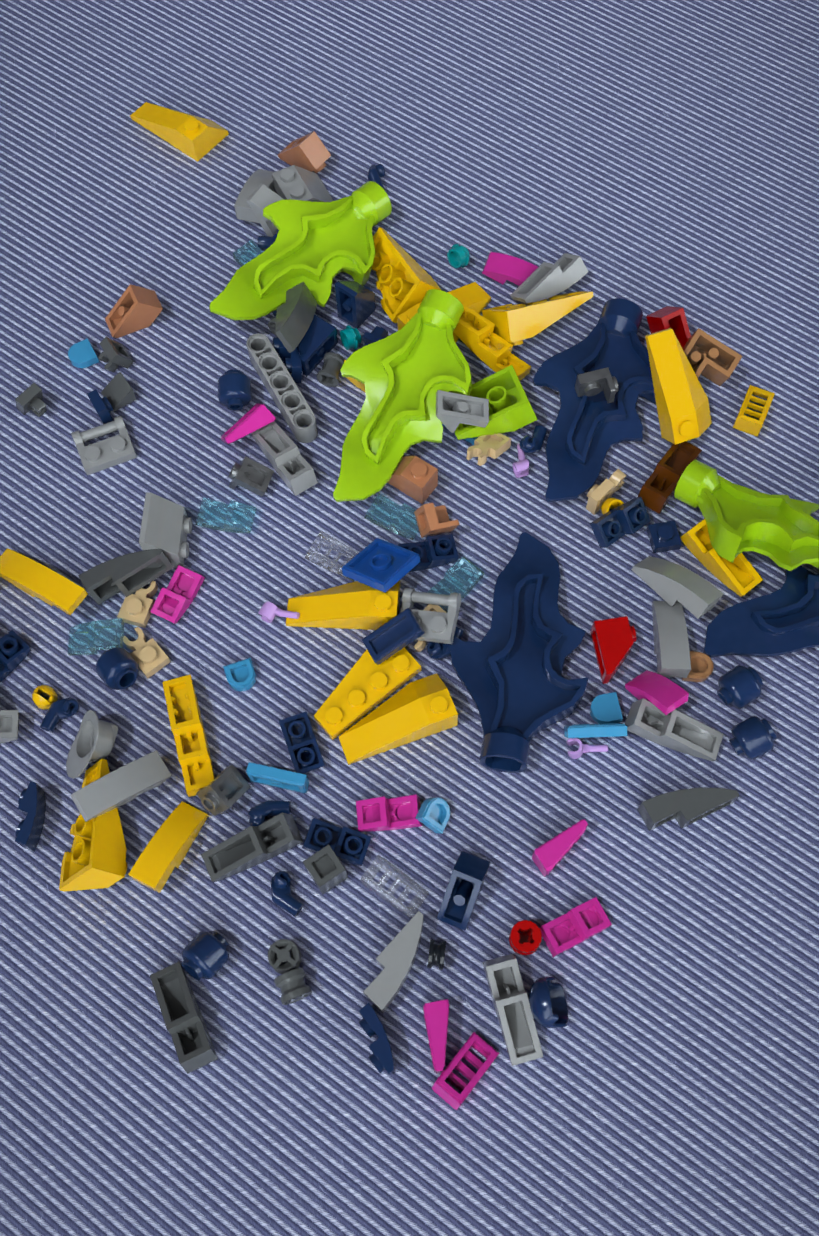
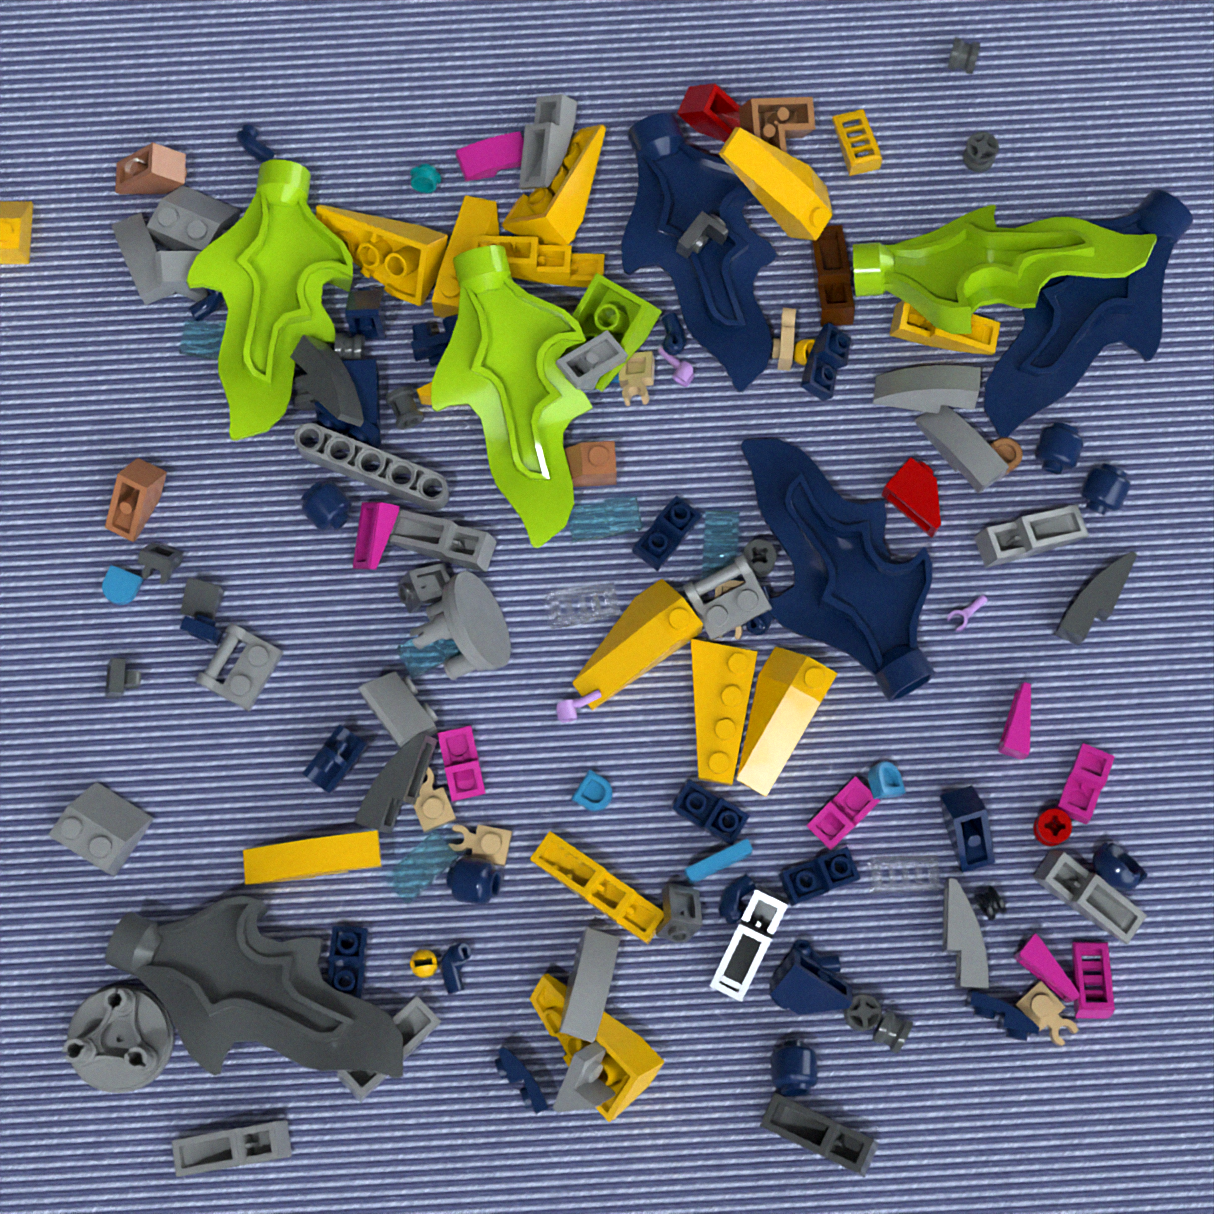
camera: 40 degrees left, 10 degrees up
(59, 844) = (581, 1086): none -> light grey slope
(91, 743) = (514, 973): light grey piece -> none
(104, 533) = (335, 759): none -> dark blue hips
(168, 846) = (675, 1002): yellow slope -> none
(252, 510) = (472, 620): none -> light grey piece
(262, 907) = (808, 987): none -> dark blue slope
(325, 869) = (835, 909): dark grey panel -> none
(329, 314) = (350, 347): none -> dark grey wheel
(350, 337) = (392, 356): teal plate -> none
(381, 565) = (640, 581): blue tile -> none
(393, 636) = (713, 644): dark blue tile -> none
(412, 1062) = (1044, 1010): none -> tan plate
(434, 520) = (649, 496): nougat panel -> none
(472, 617) = (760, 564): none -> dark grey wheel
(595, 730) = (965, 590): dark azure tile -> none
(606, 709) = (955, 561): dark azure tile -> none
(657, 690) = (989, 508): dark pink slope -> none
(664, 536) = (874, 345): dark blue plate -> none

